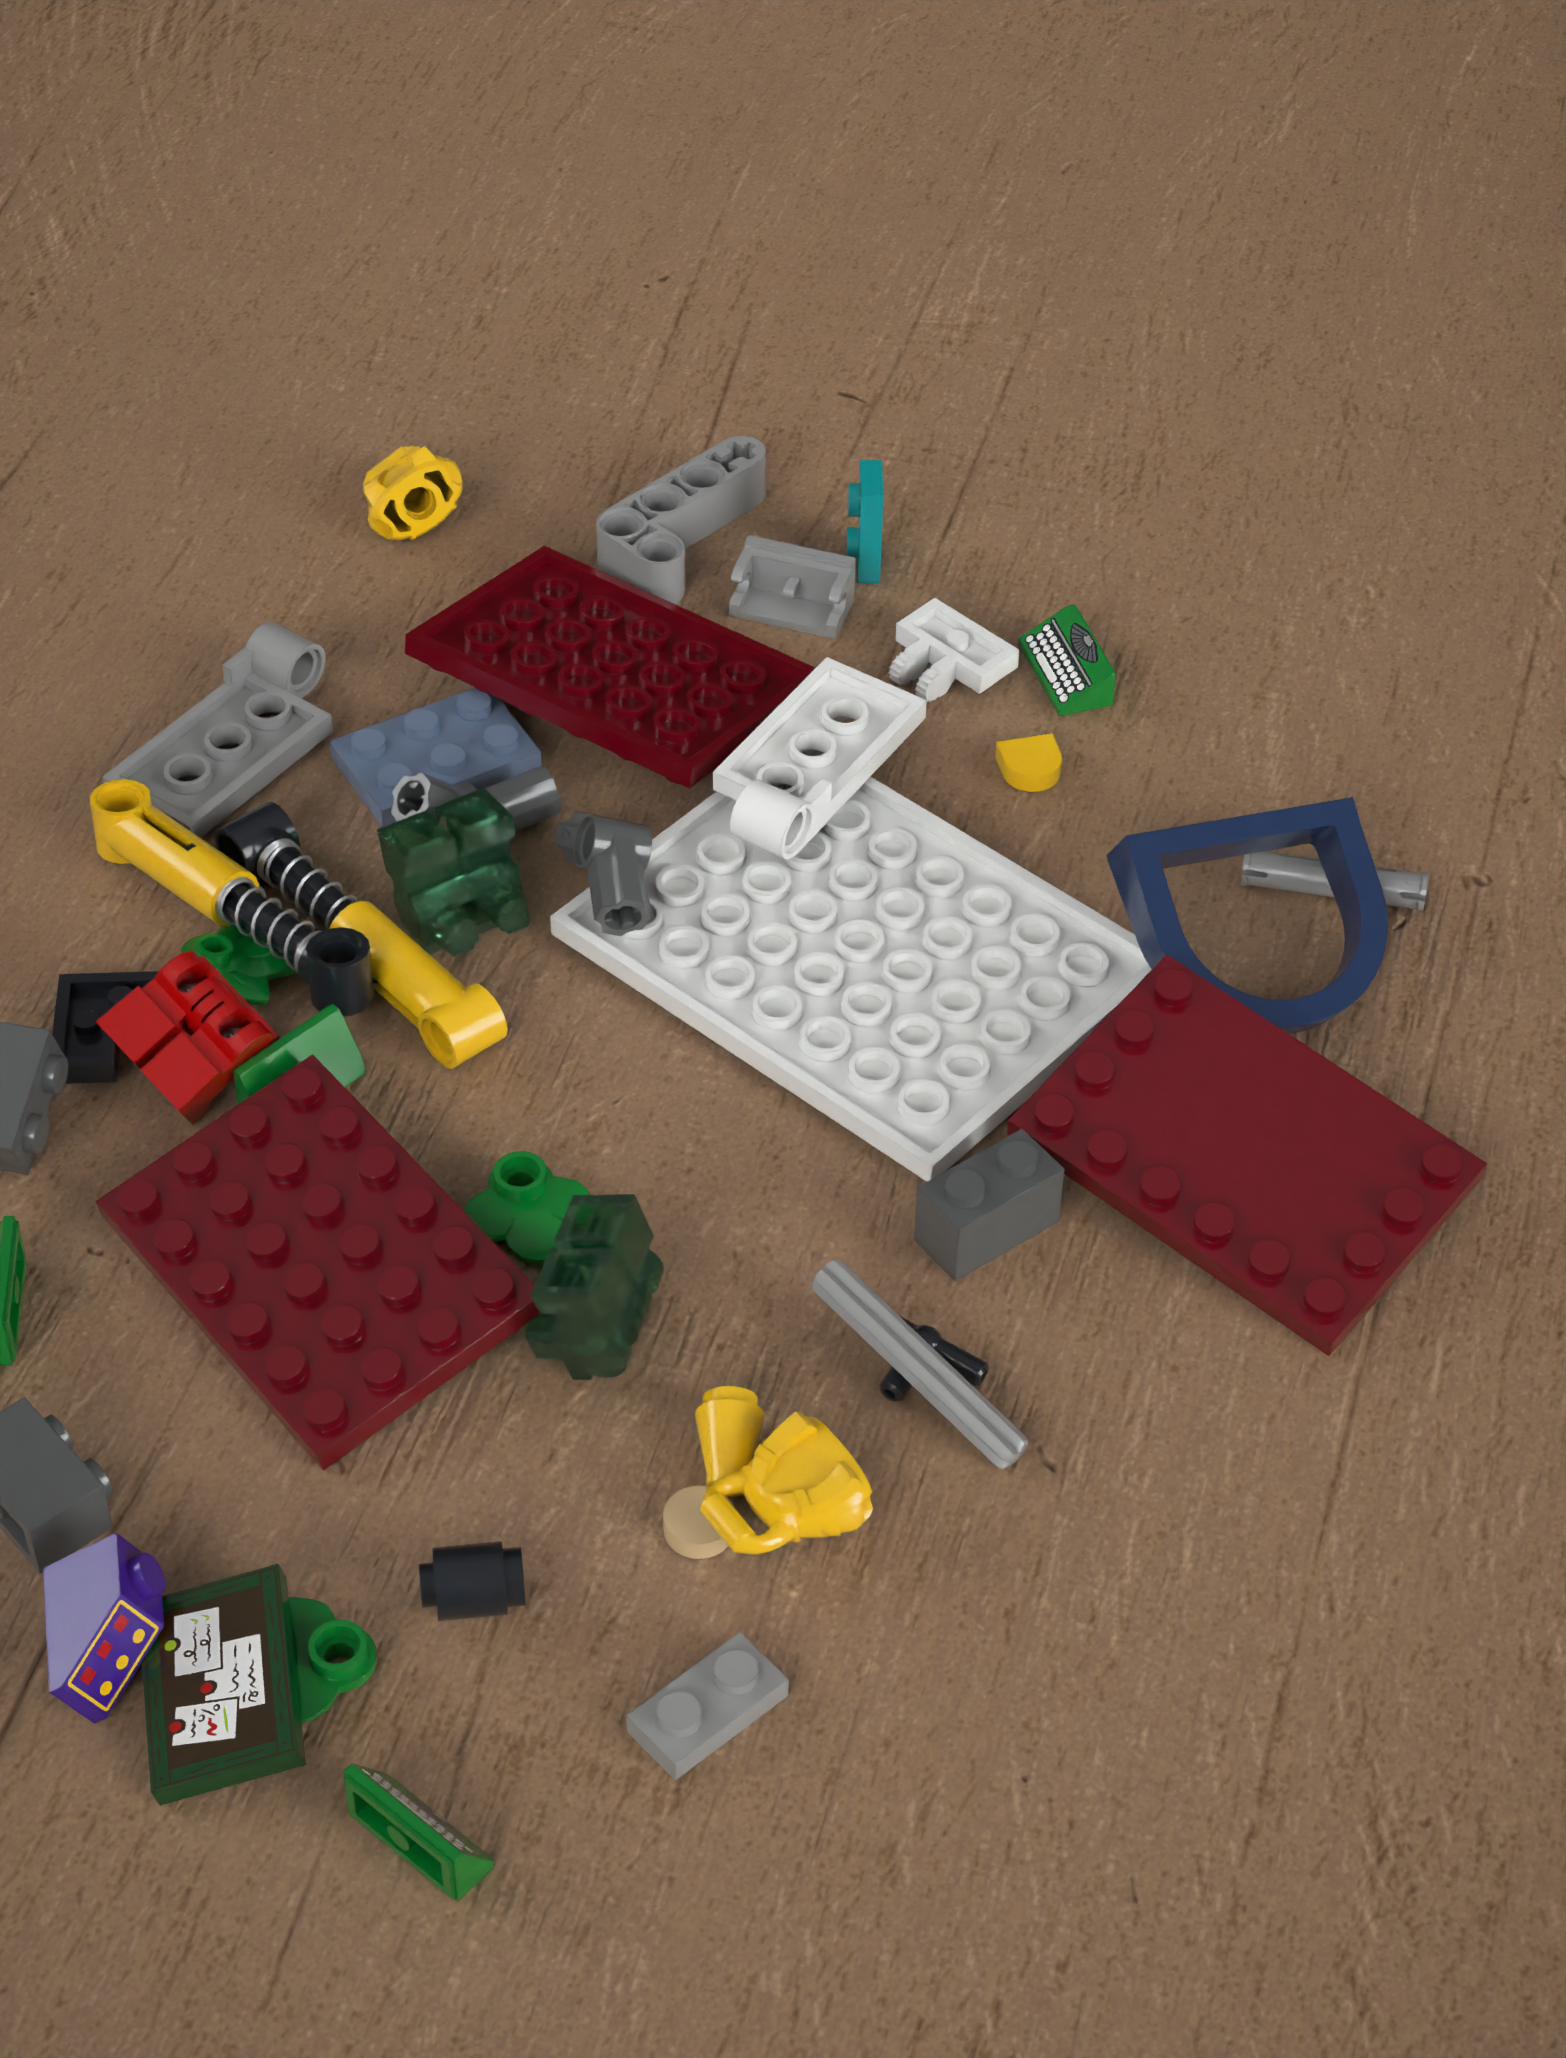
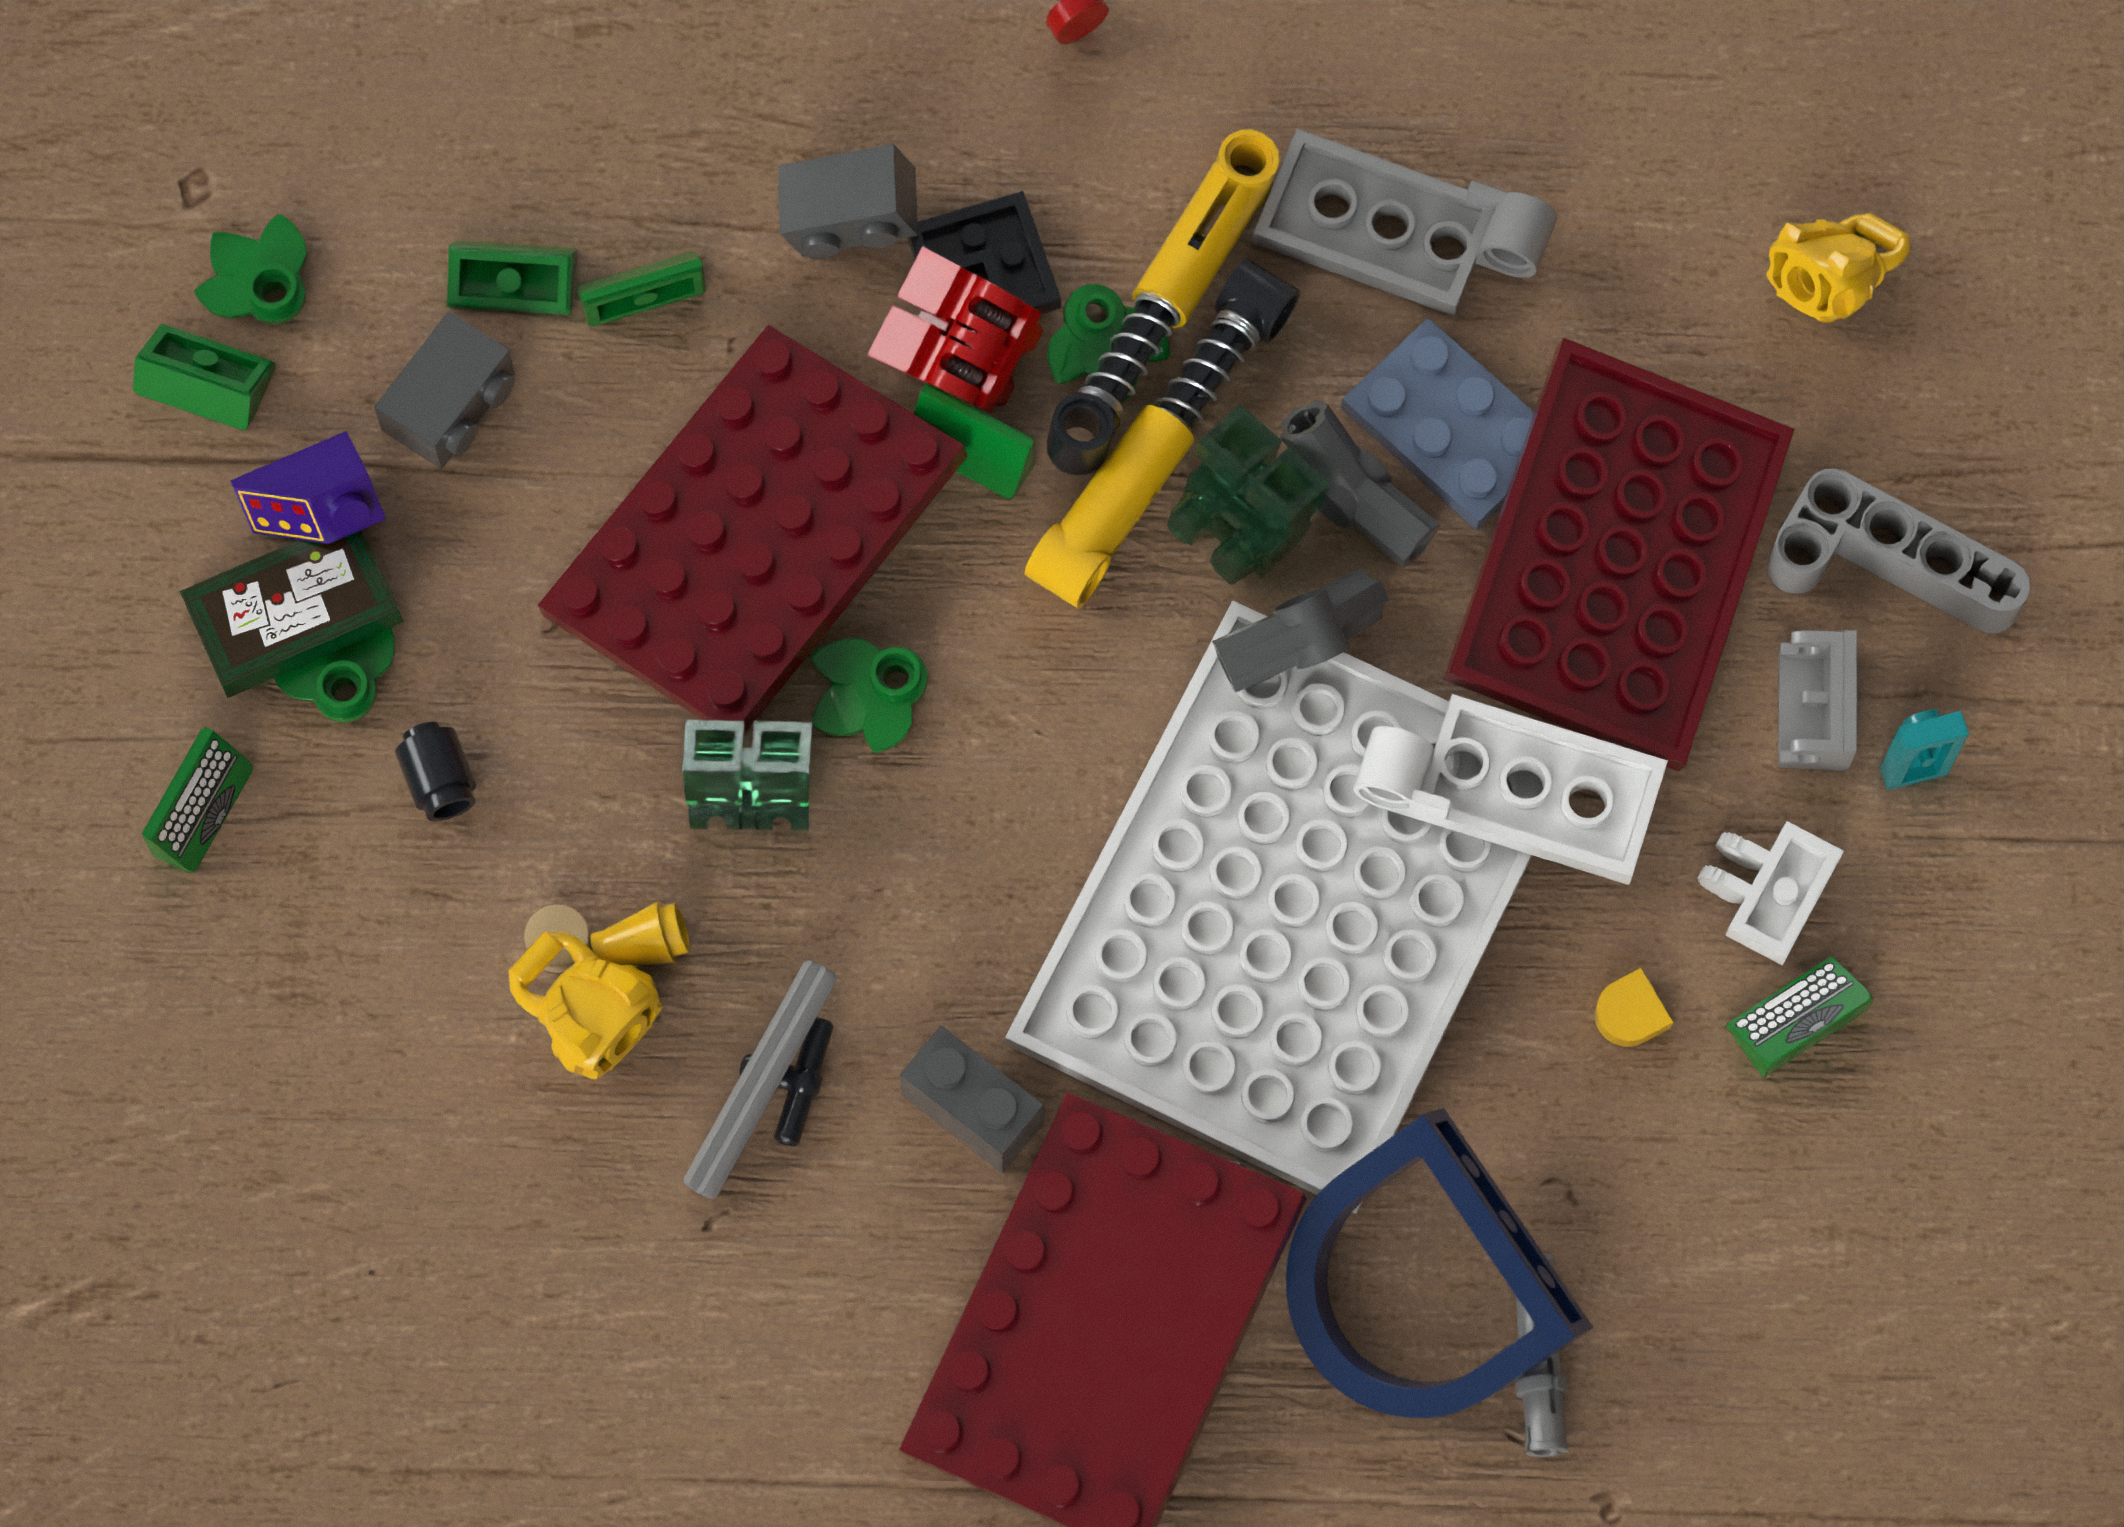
camera: 75 degrees right, 25 degrees up
(707, 1706) = (373, 996): light grey plate -> none

